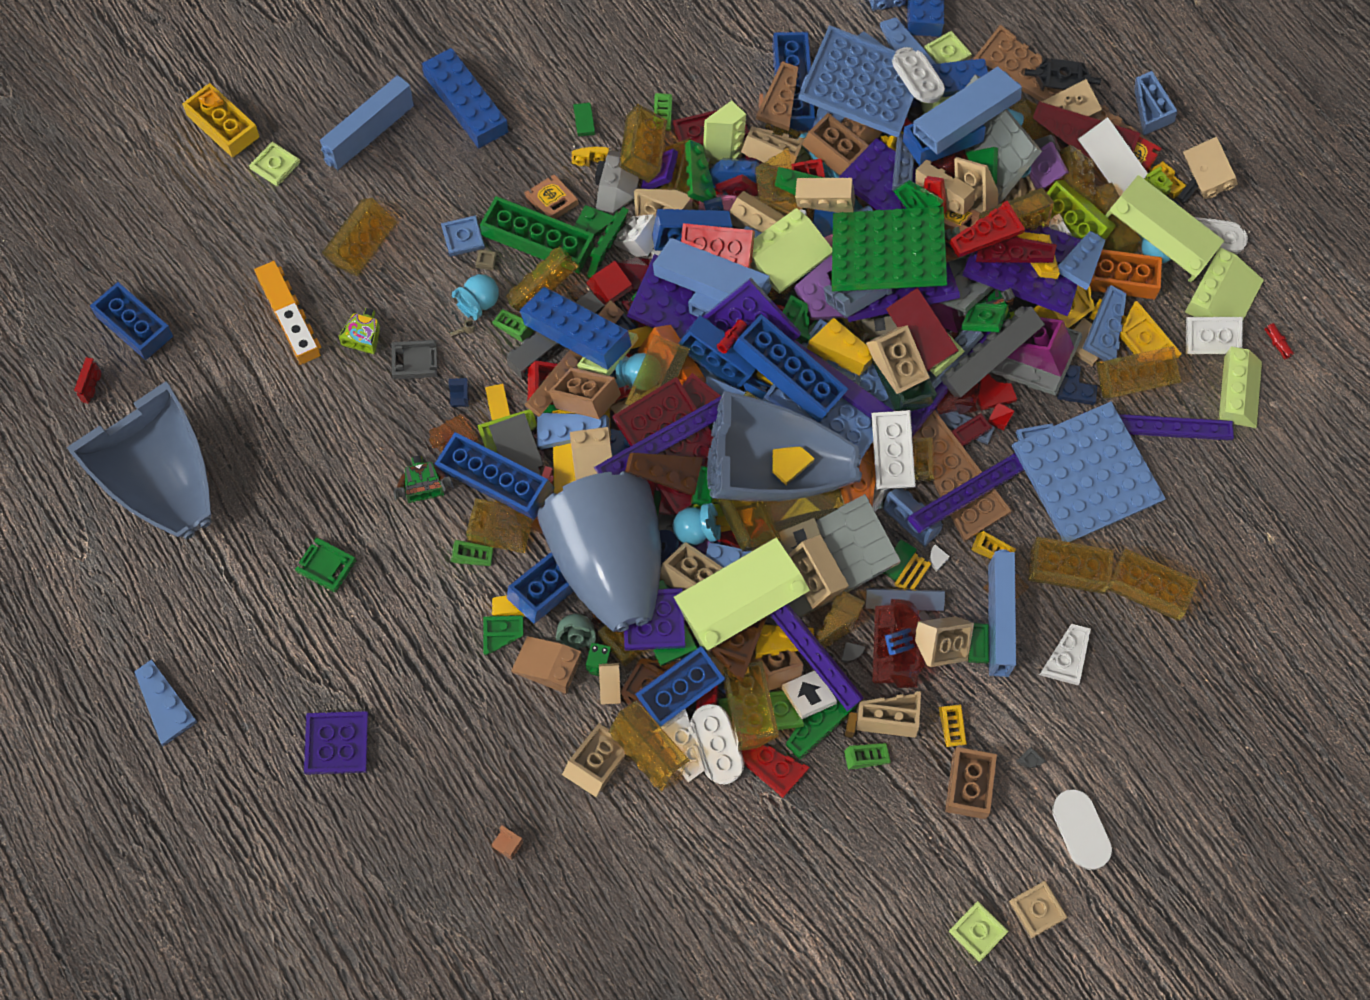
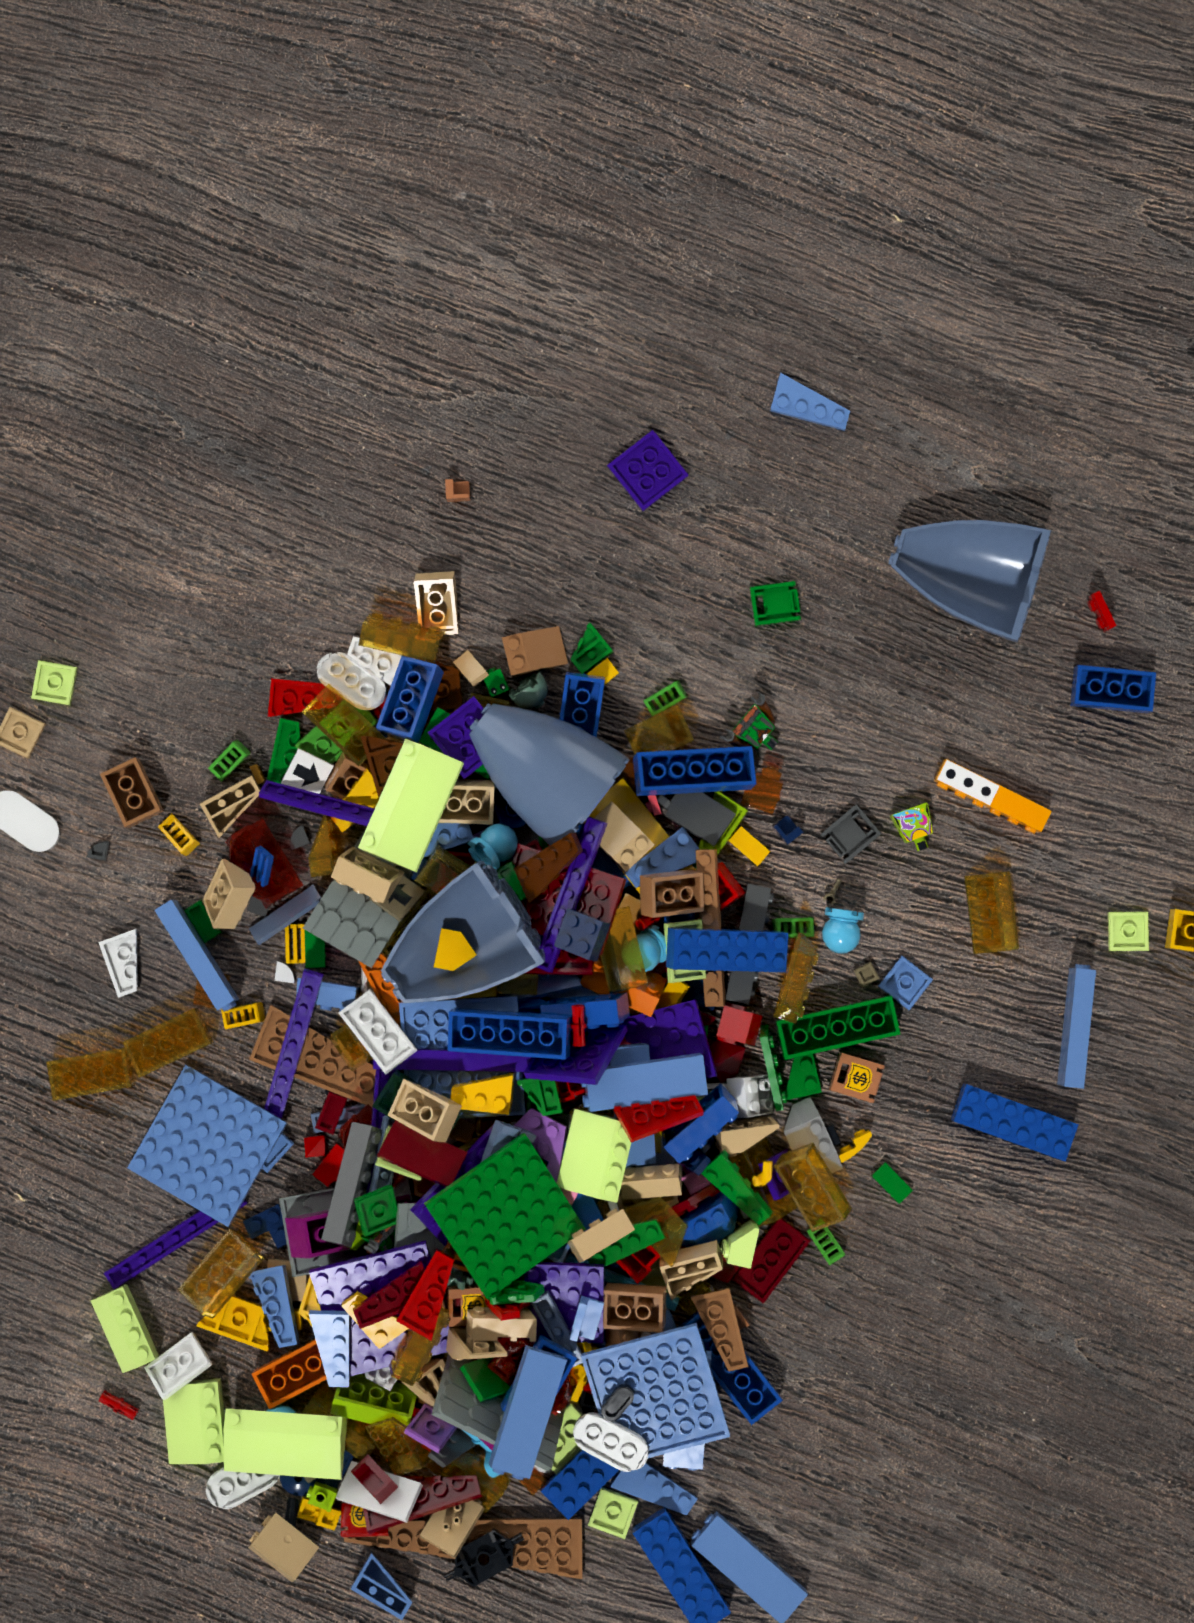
camera: 145 degrees right, 20 degrees up
(673, 167) = (765, 1176): none -> yellow arm
(678, 396) = (582, 934): none -> dark blue brick
(878, 154) = (586, 1318): none -> medium blue panel
(894, 91) = (617, 1402): none -> black tile
(1111, 163) = (374, 1479): none -> dark red panel

